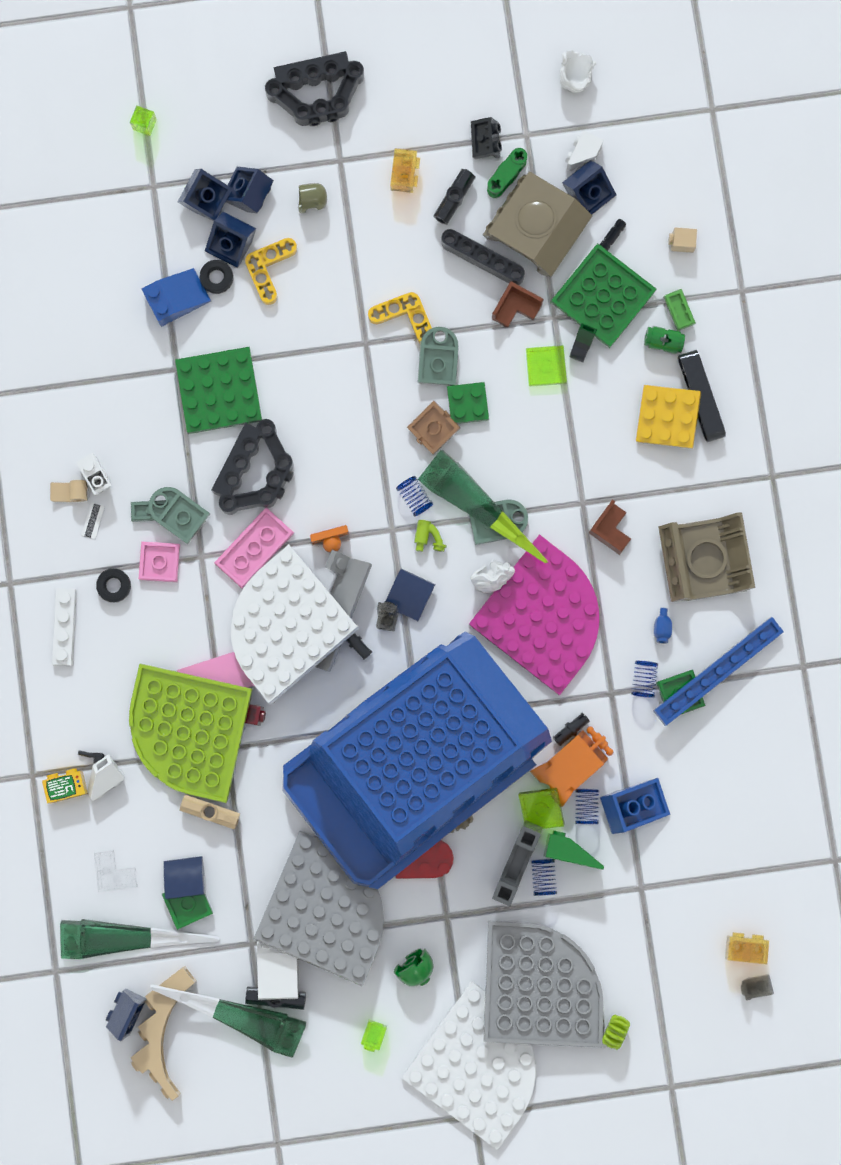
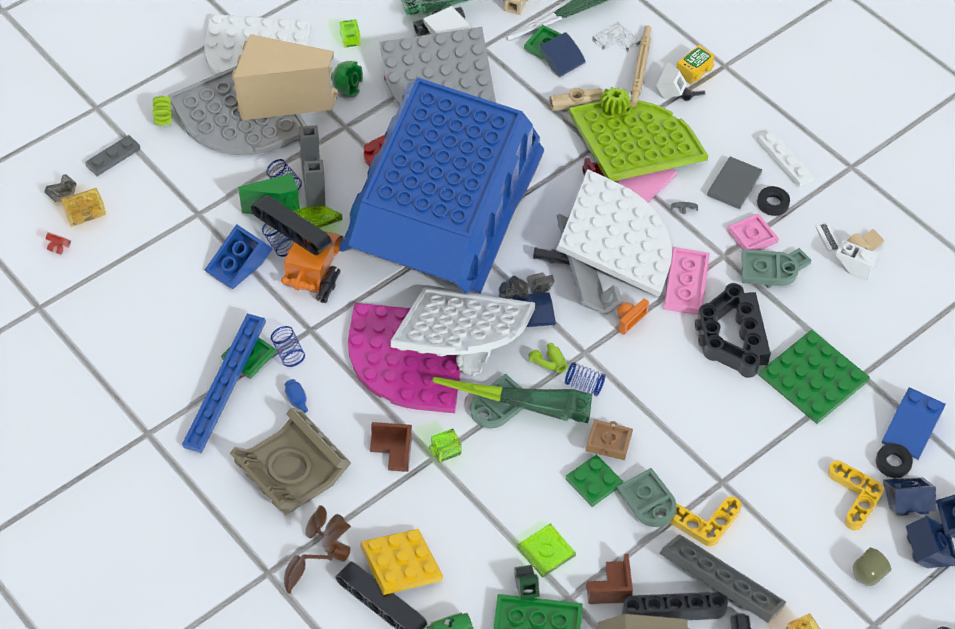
camera: 145 degrees right, 30 degrees down
(118, 817) = (640, 66): none -> tan axle
(131, 627) = (734, 182): none -> dark grey tile
(182, 786) = (615, 100): none -> lime gear
(201, 631) = (685, 205): none -> dark grey piece
(415, 623) = (513, 287): none -> clear smoke bracket
(430, 256) = (723, 578): none -> dark grey tile
(492, 595) = (461, 323): none -> white plate
(498, 971) = (282, 79): none -> tan windscreen
(570, 502) = (445, 445): none -> clear neon green brick
(577, 799) = (291, 225): none -> black beam
(686, 1008) = (112, 155): none -> dark grey plate
(720, 447) = (334, 530): none -> reddish brown plant
(787, 923) = (58, 241): none -> clear red tile

